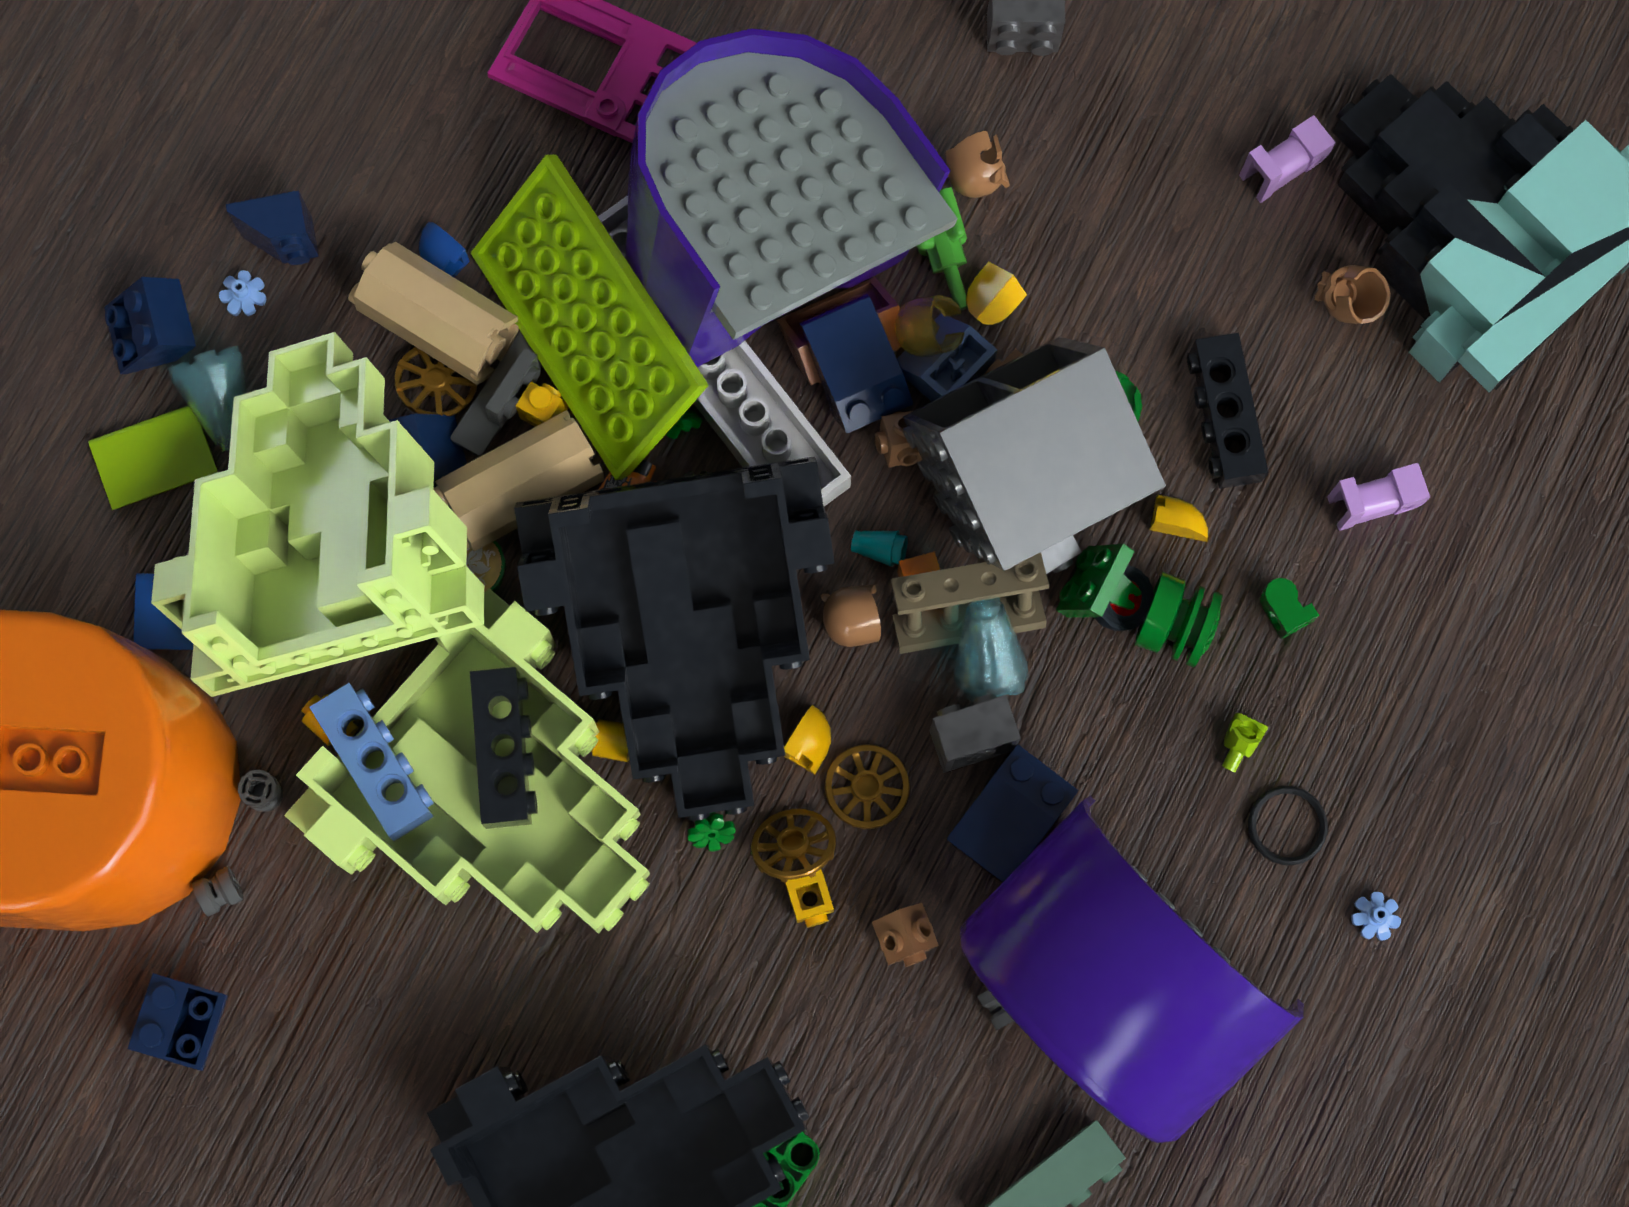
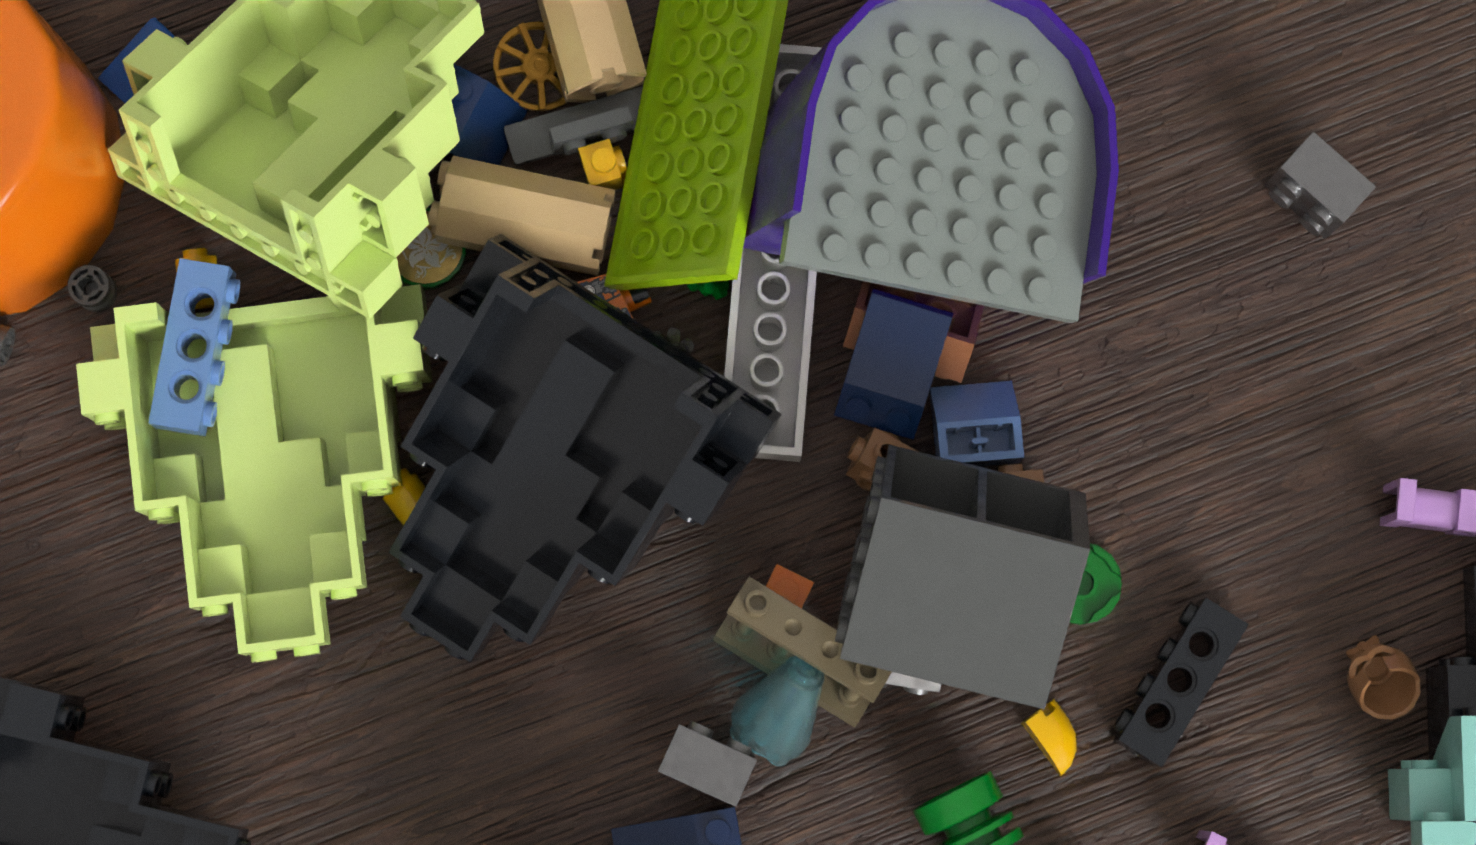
camera: 40 degrees right, 5 degrees up
(487, 690) = (283, 437): black brick -> none
(711, 832) = (422, 649): green plant -> none
(793, 844) = (478, 722): pearl gold wheel -> none
(809, 741) = (572, 646): yellow brick -> none
(814, 914) = (451, 758): yellow brick -> none
(852, 616) = (698, 573): medium nougat helmet -> none
(867, 787) = (585, 726): pearl gold wheel -> none
(881, 546) = (779, 535): teal cone -> none
(918, 330) = (973, 378): clear yellow helmet -> none
(947, 253) = (1066, 336): bright green plant -> none
(974, 173) = (1157, 280): medium nougat helmet -> none
(993, 294) = (1070, 404): yellow brick -> none
(1107, 589) = (933, 743): green plate -> none

